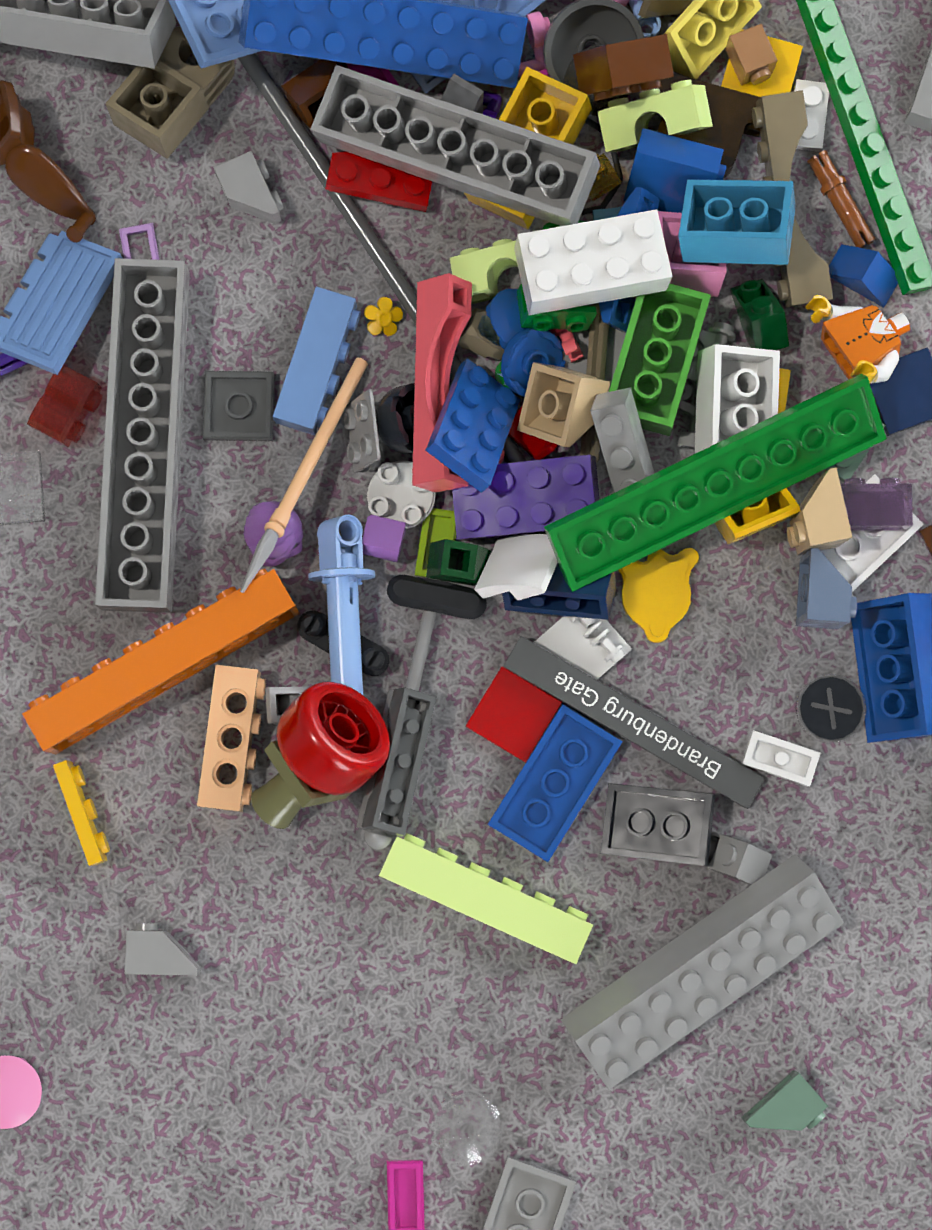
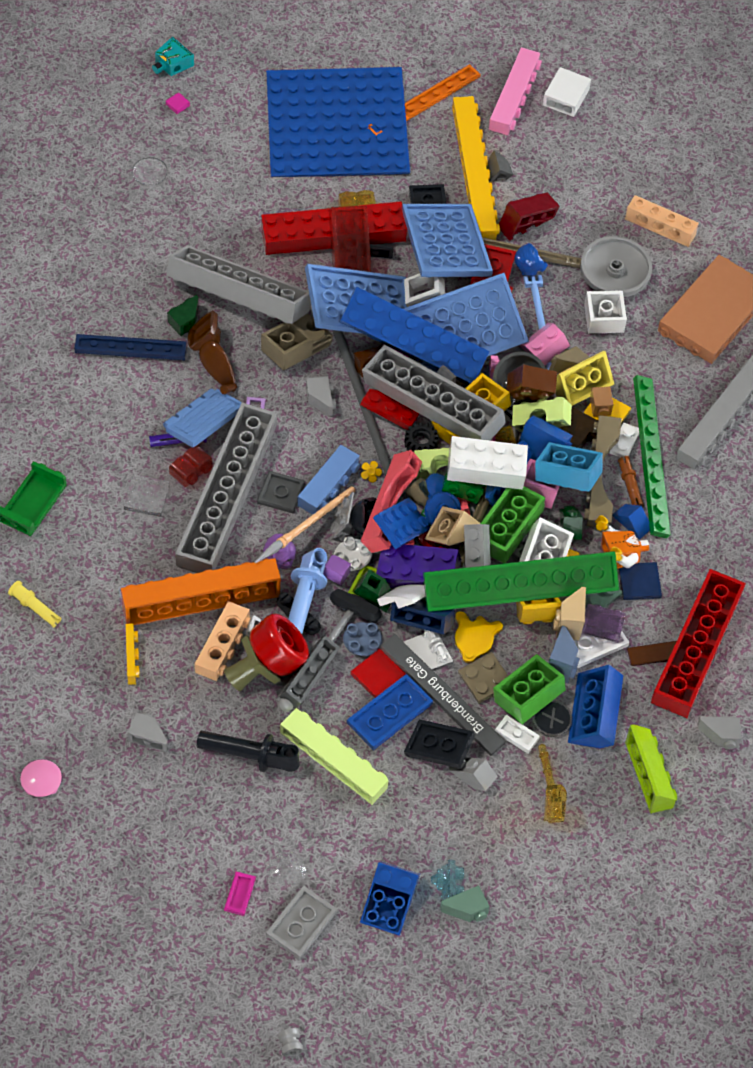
camera: 15 degrees right, 25 degrees down
(371, 937) = (267, 753): none -> black piece
(447, 206) = (421, 430): none -> black tyre
(467, 655) = (362, 638): none -> sand blue dish
(657, 1129) = (389, 898): none -> blue slope
(696, 665) = (483, 676): none -> dark tan plate
(703, 971) = (440, 819): light grey brick -> none
(741, 1072) = (446, 879): none -> clear light blue hips
(781, 673) = (529, 689): none -> bright green brick
(887, 880) = (555, 794): none -> clear yellow piece

